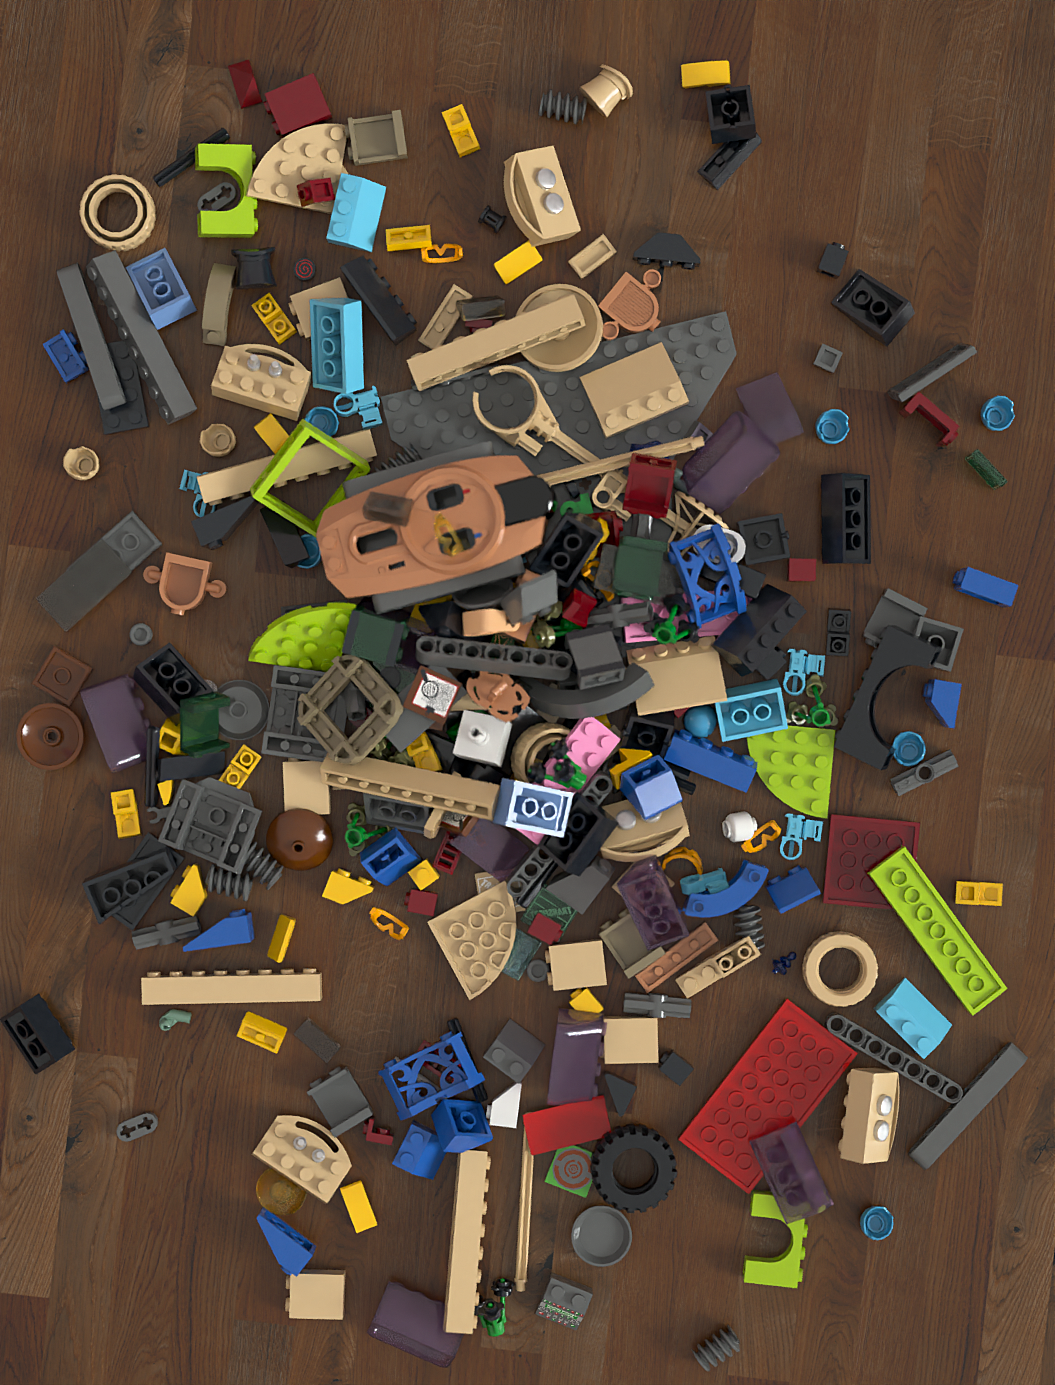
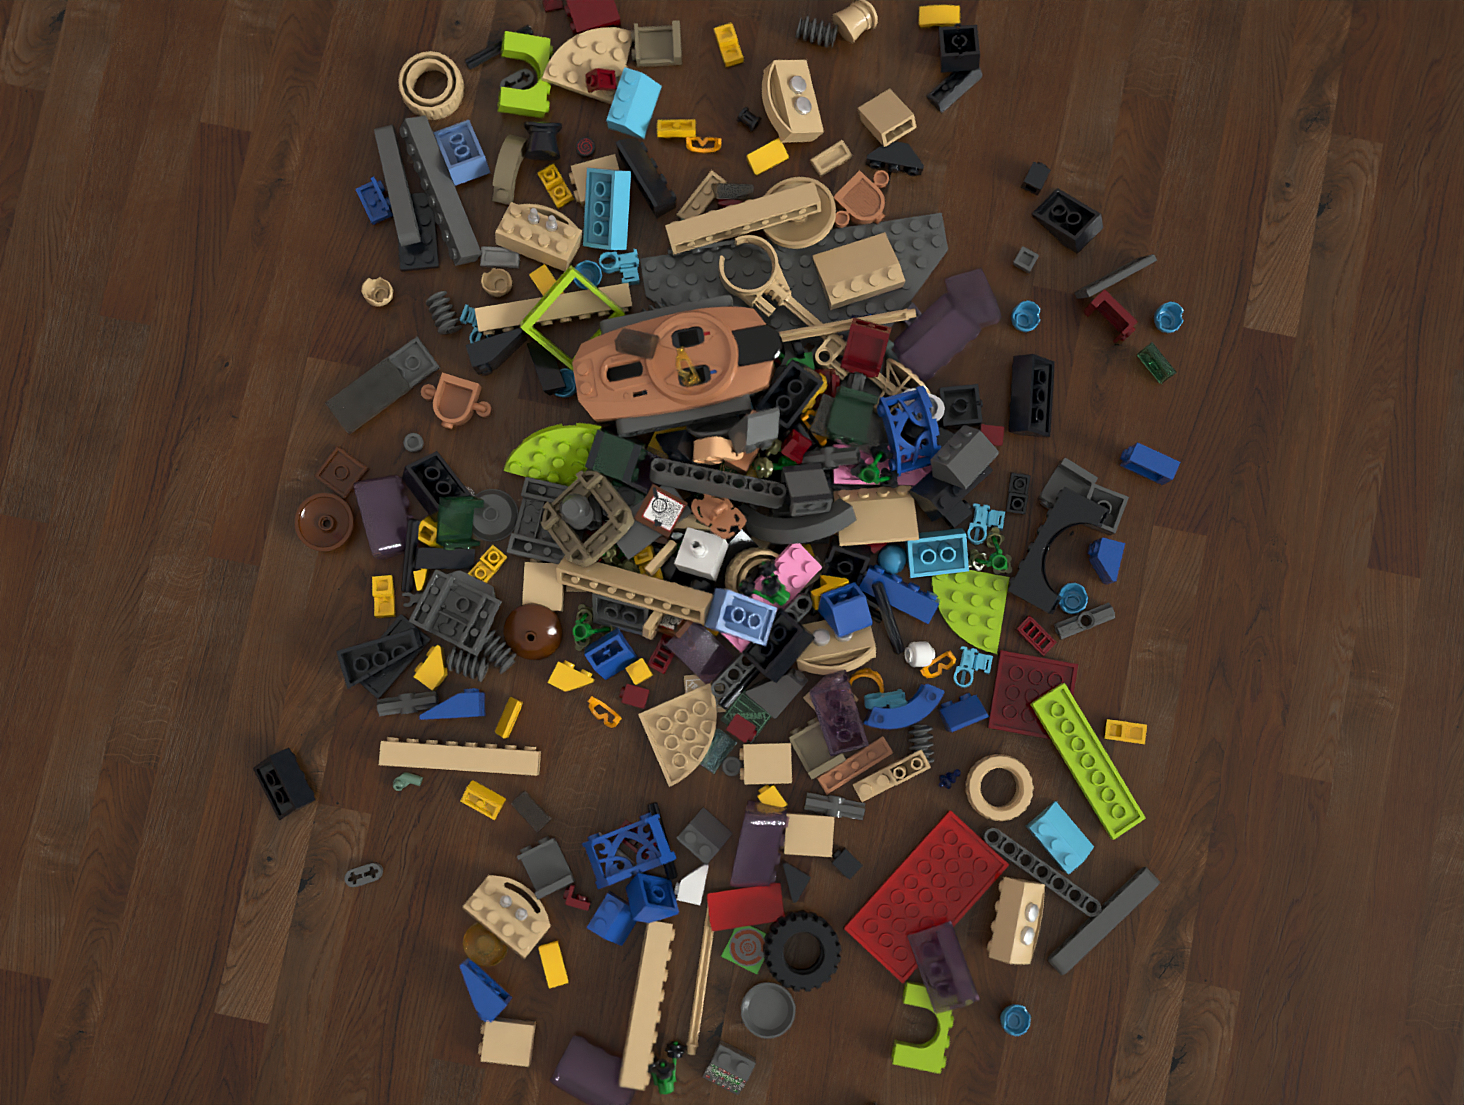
camera: 10 degrees right, 5 degrees down
(159, 482) = (441, 313): none -> dark grey piece
(217, 409) = (499, 257): none -> light grey tile
(336, 702) = (576, 511): none -> dark grey hat
(437, 747) = (660, 558): none -> tan tile
(653, 205) = (887, 117): none -> tan brick
(700, 789) = (888, 617): none -> black axle
(771, 601) = (963, 457): none -> dark grey slope
(854, 784) = (1025, 635): none -> dark red slope

